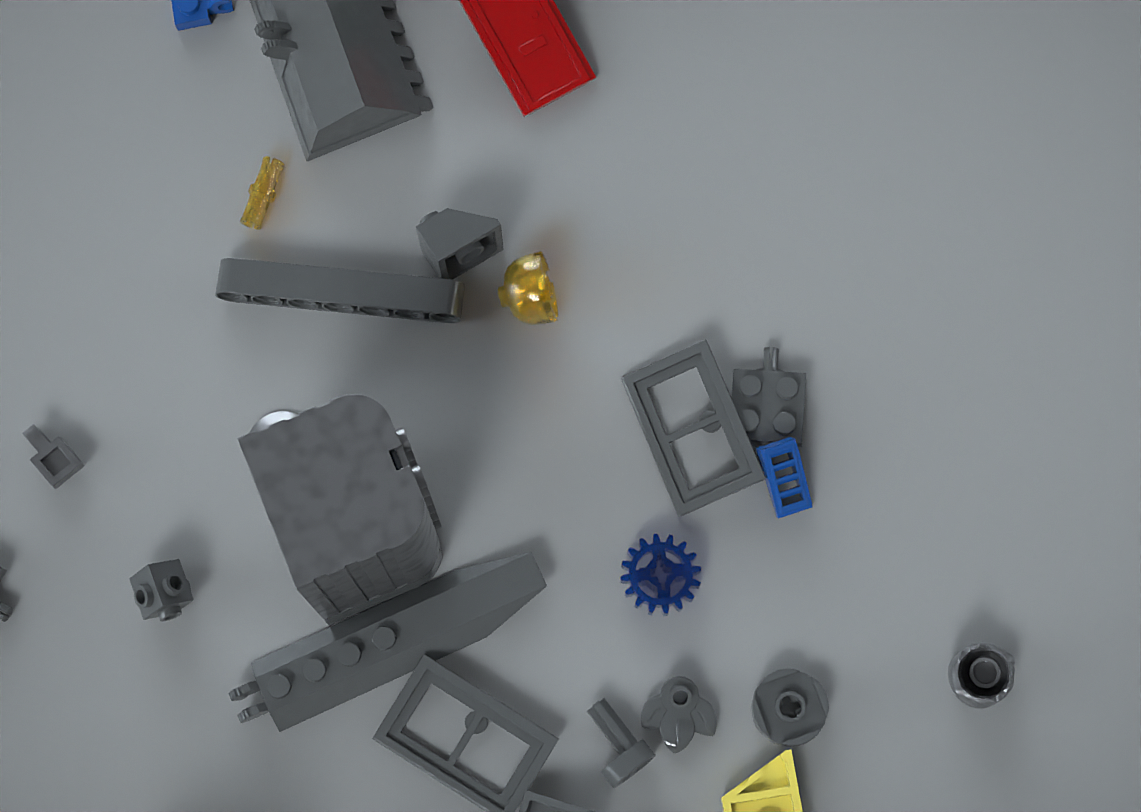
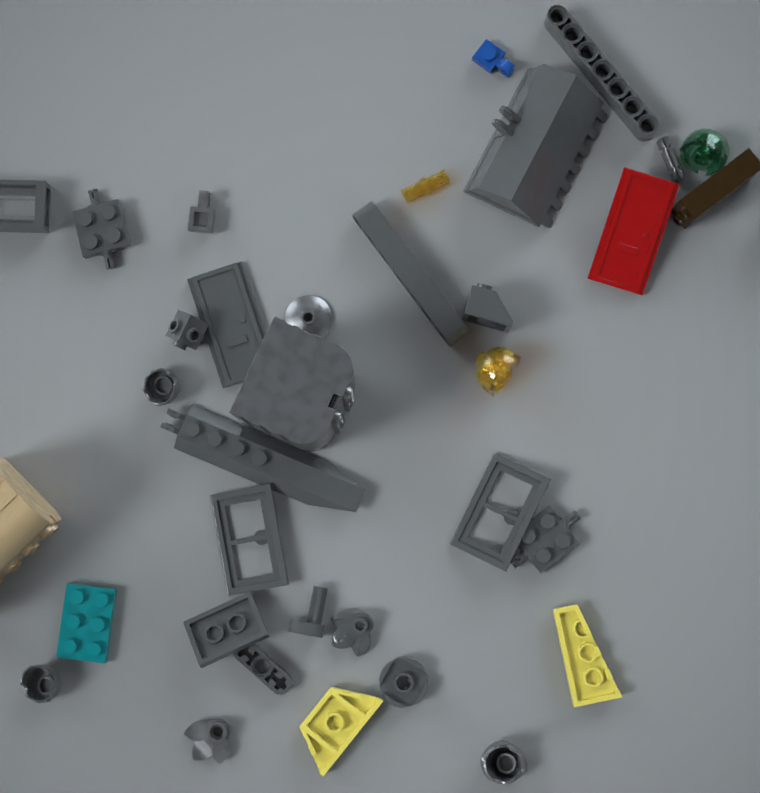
camera: 45 degrees right, 10 degrees up
(196, 678) = (161, 387): none -> dark grey hair
(209, 533) = (234, 326): none -> dark grey piece
(677, 571) = (424, 573): clear blue gear -> none
(775, 449) = (523, 563): blue slope -> none
(949, 489) = (583, 662): none -> light yellow wing

